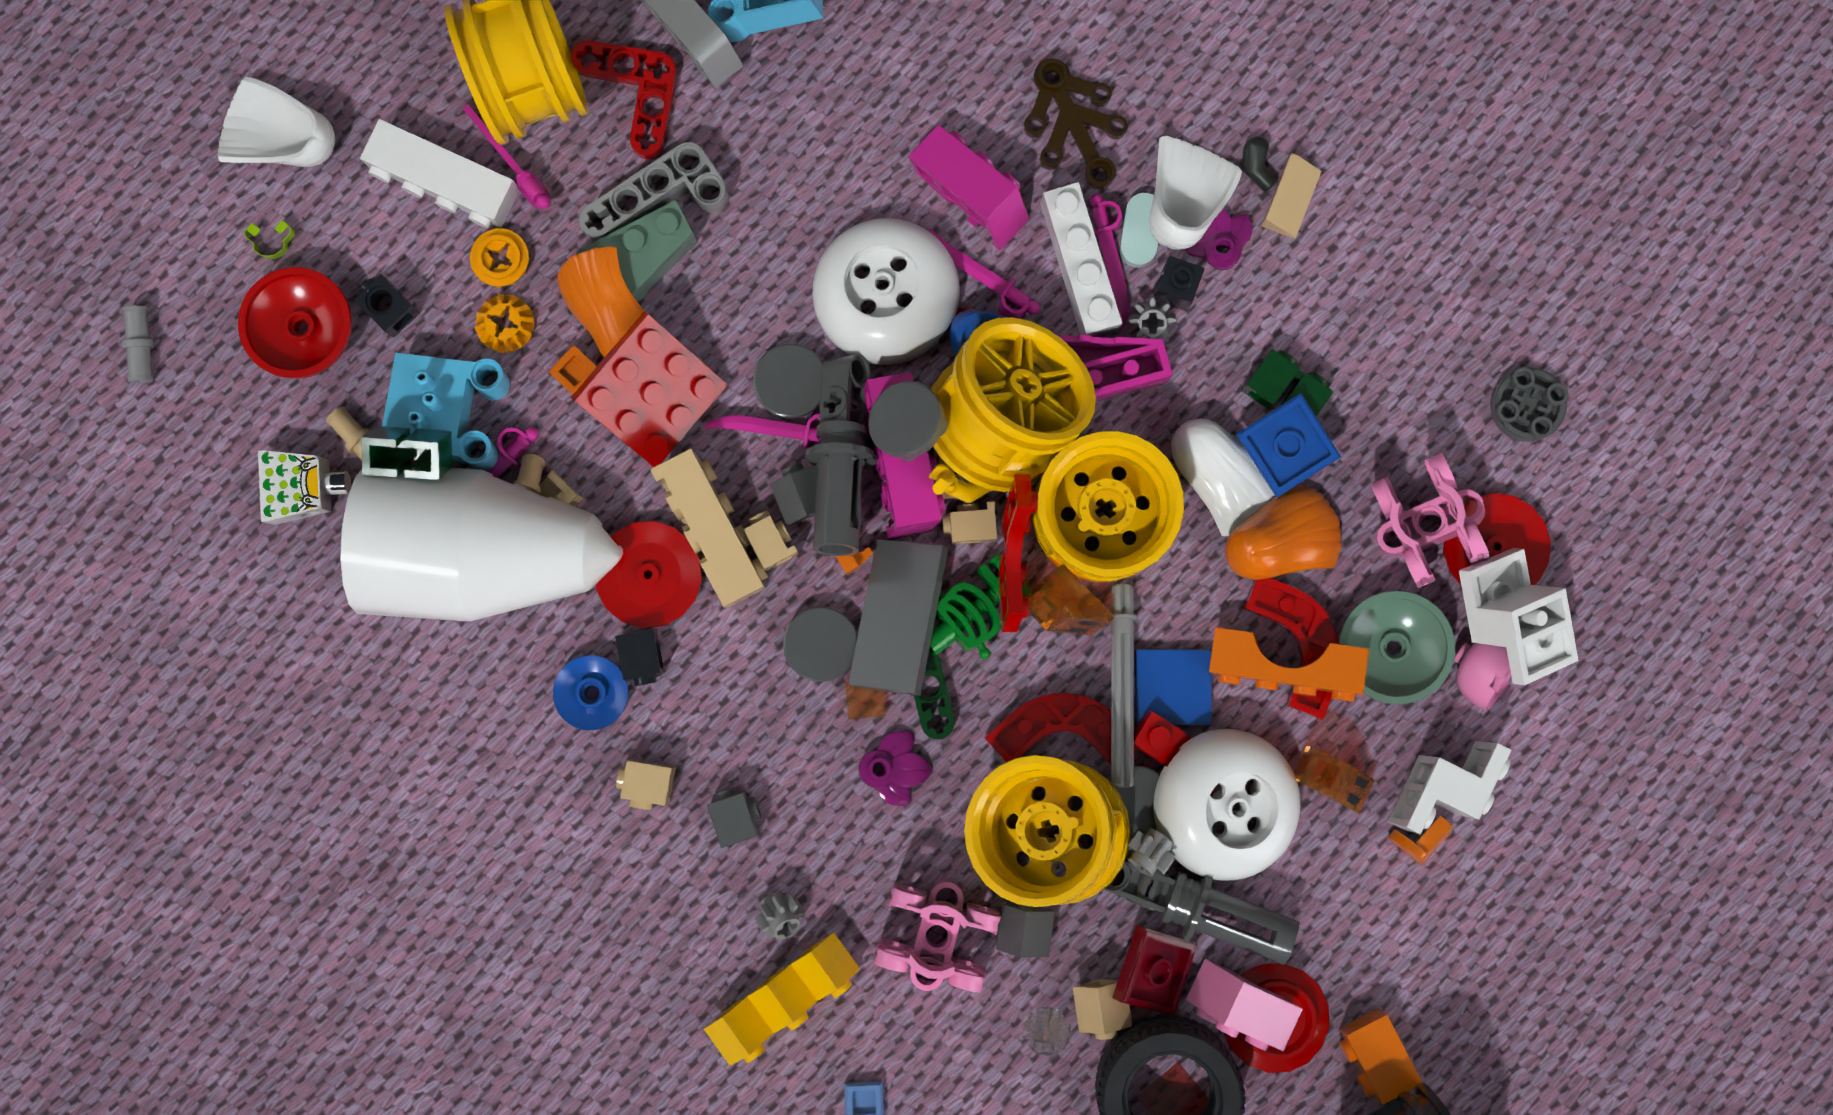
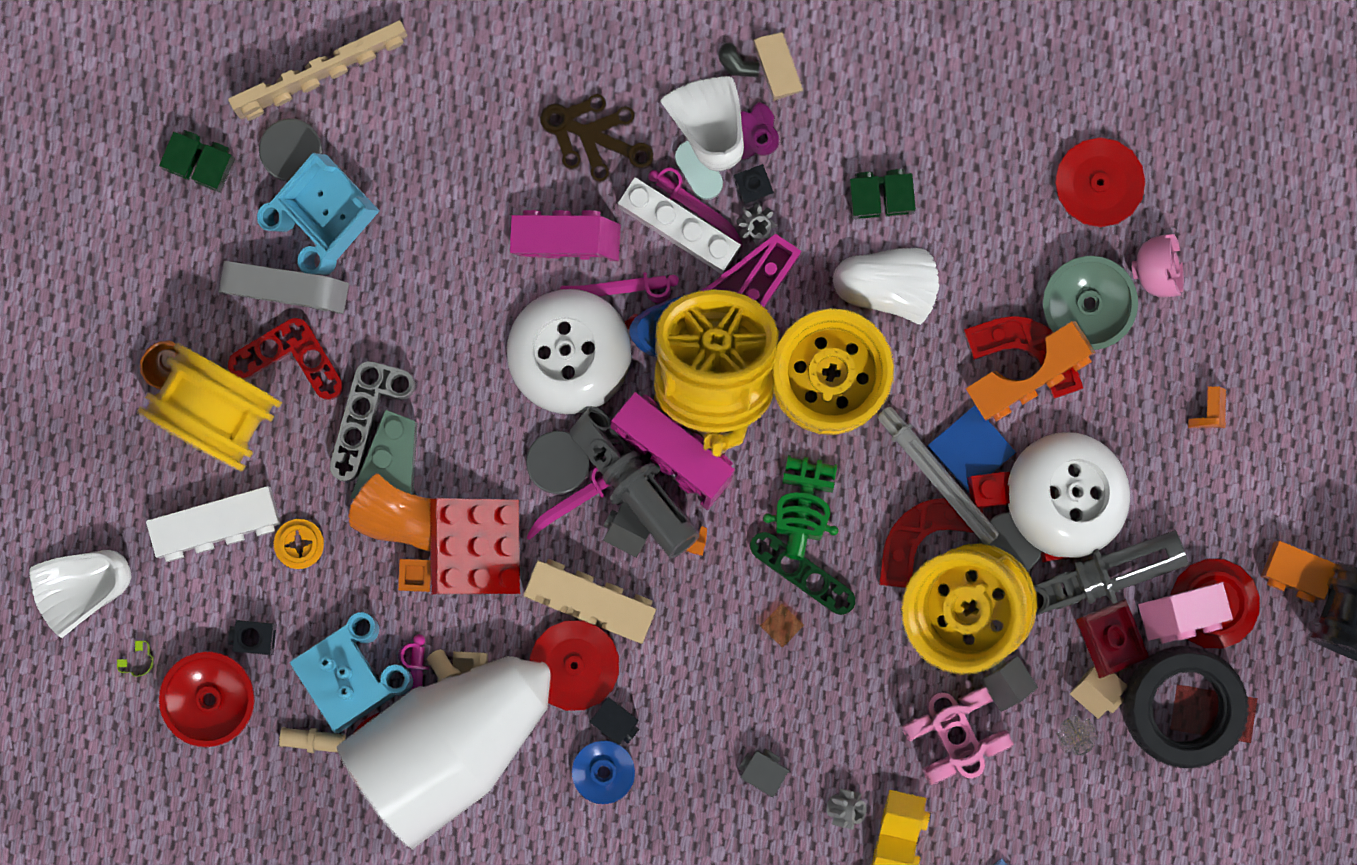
camera: 40 degrees left, 0 degrees up
(137, 344) = (112, 802): light grey pin -> none
(297, 486) = (298, 802): white torso -> none
(391, 449) = (346, 721): piece -> none
(510, 338) = (352, 590): light orange gear -> none
(526, 181) = (276, 479): dark pink sword -> none
(645, 783) = (688, 799): tan brick -> none
(769, 540) = (633, 576): tan brick -> none
(820, 644) = (723, 614): dark grey tile -> none
(898, 617) = (758, 554): dark grey tile -> none
(900, 767) = (842, 650): magenta plate -> none
(907, 420) = (661, 426): dark grey tile -> none
(971, 524) = (753, 455): tan brick -> none
(1012, 573) = (783, 431): red plate -> none
(1066, 605) = (858, 455): clear orange slope -> none
(1151, 852) = (1045, 566): light grey gear -> none
(1286, 536) = (961, 290): orange hair -> none
(1288, 445) = (912, 232): blue tile -> none
(1333, 778) = (1122, 420): clear orange slope -> none
(1407, 524) = (1046, 186): bright pink piece -> none
(1456, 789) = (1198, 363): white bracket -> none
(1520, 616) = (1148, 219): white bracket -> none
(1528, 404) = (1043, 72): dark grey tile -> none

